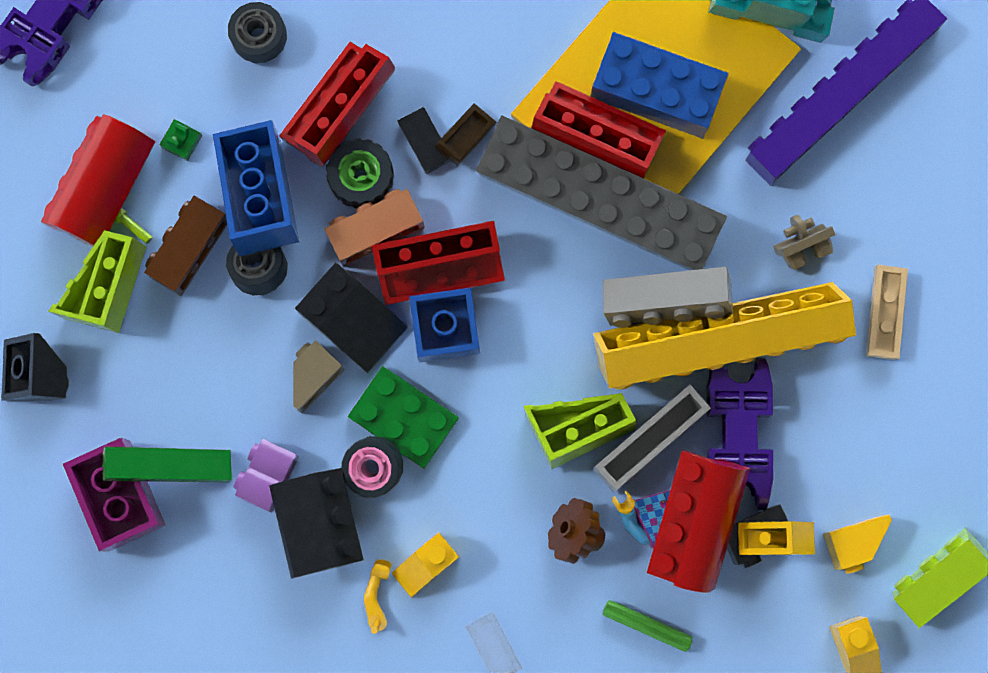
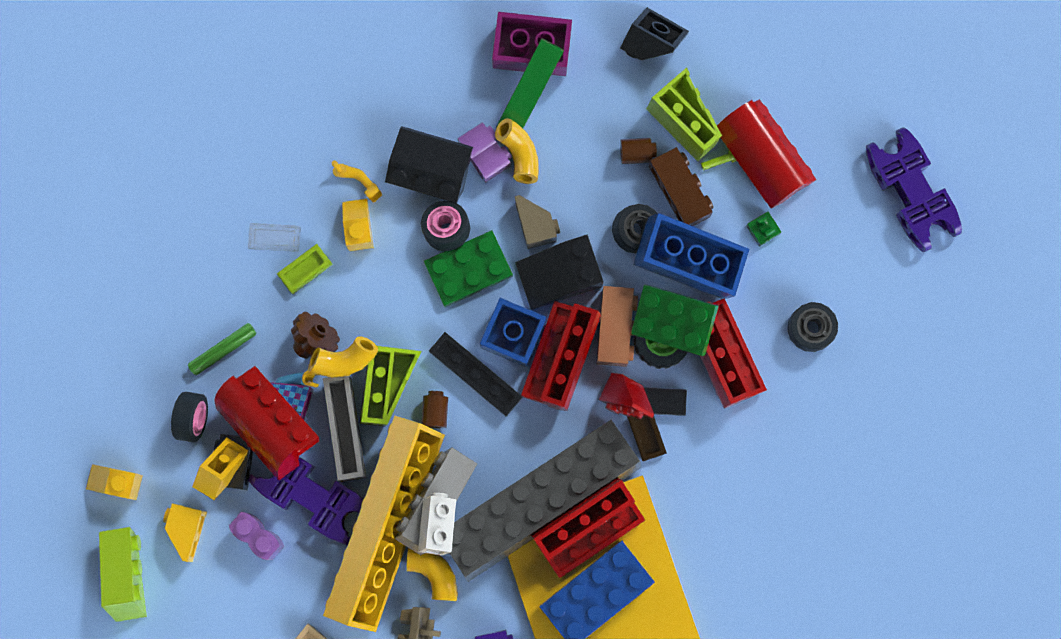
camera: 120 degrees right, 0 degrees up
(171, 314) = (637, 150): none -> reddish brown brick
(240, 436) = (522, 150): none -> yellow cylinder
(334, 162) = (674, 320): none -> green plate
(440, 167) = (626, 397): none -> red slope
(508, 592) = (304, 269): none -> lime tile
(510, 341) = (475, 374): none -> black plate
(574, 359) = (435, 410): none -> reddish brown brick
(586, 476) = (345, 362): none -> yellow cylinder
(695, 271) = (437, 524): none -> white brick
(736, 254) = (437, 572): none -> yellow cylinder
(741, 610) = (189, 416): none -> black wheel
(816, 452) = (252, 531): none -> medium lavender brick

